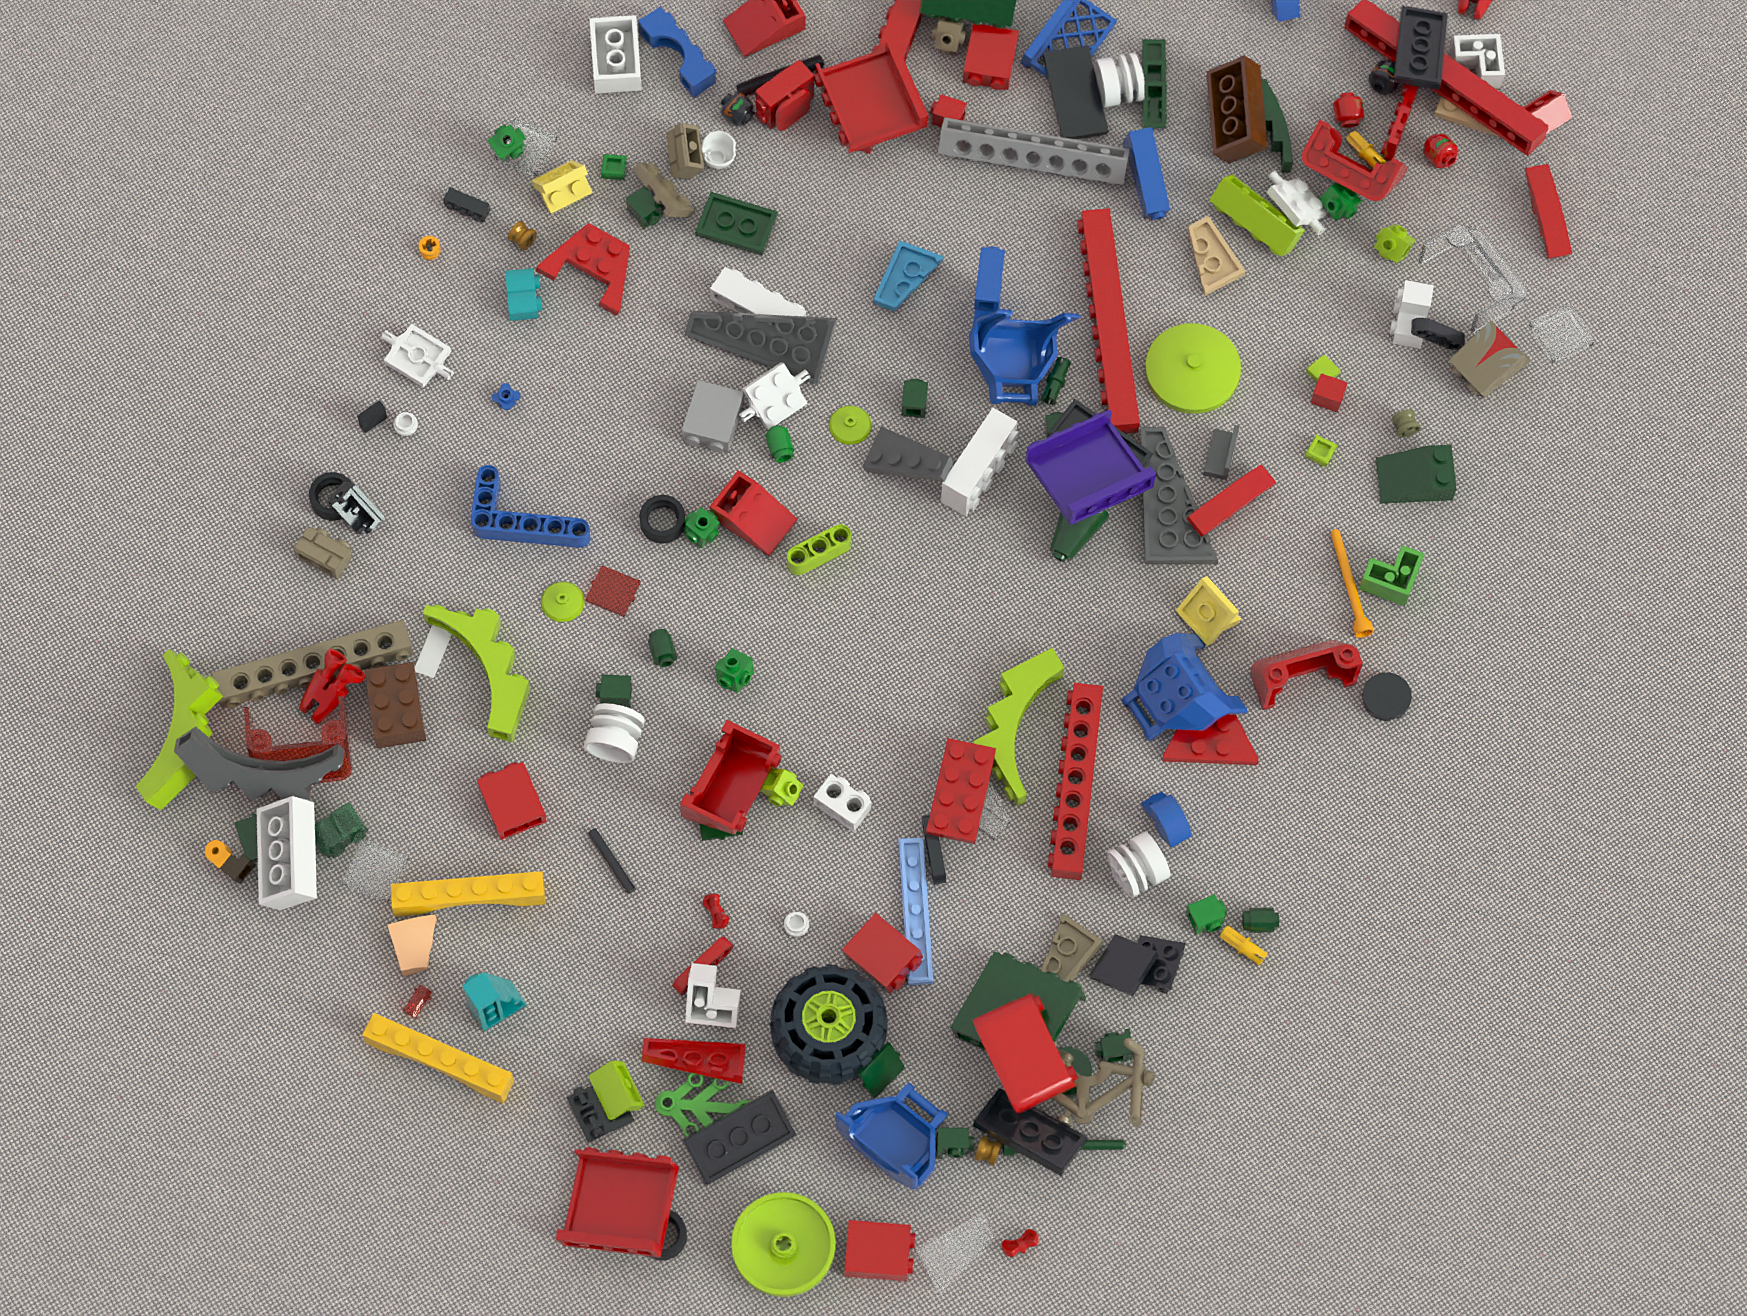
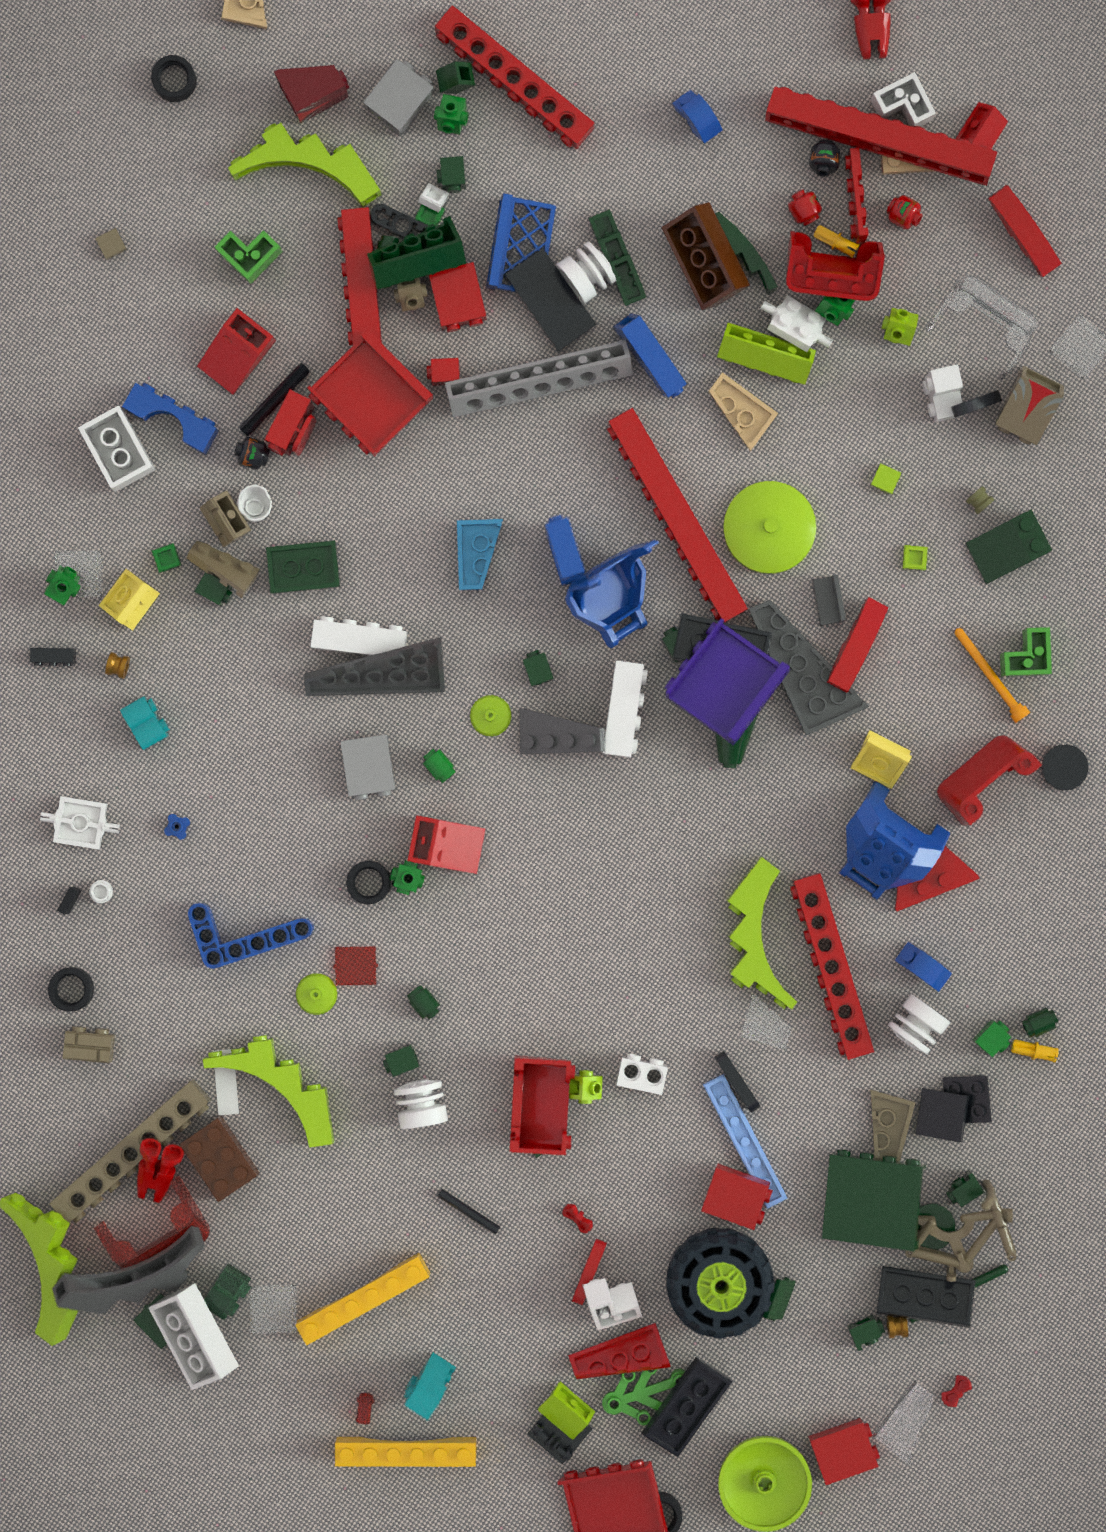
camera: 20 degrees left, 20 degrees up
(222, 857) = (145, 1360): leg -> none
(355, 508) = (97, 996): black hinge -> none
(413, 942) = (336, 1359): light nougat slope -> none
(429, 255) = (32, 711): light orange bush -> none
(511, 800) = (359, 1198): red brick -> none
(596, 255) = (193, 655): red wing -> none
(734, 670) = (496, 999): green brick -> none
(774, 396) = (414, 723): white plate -> none
(796, 924) = (650, 1198): white plate -> none
(825, 540) = (507, 856): lime beam -> none
(894, 1135) = (817, 1353): blue piece -> none
(961, 791) = (740, 1025): red plate -> none
(1024, 1053) = (896, 1245): windscreen -> none
(1056, 380) = (654, 595): dark green pin -> none
(1329, 392) = (901, 500): red panel -> none
(1420, 47) = (848, 120): black tile -> none

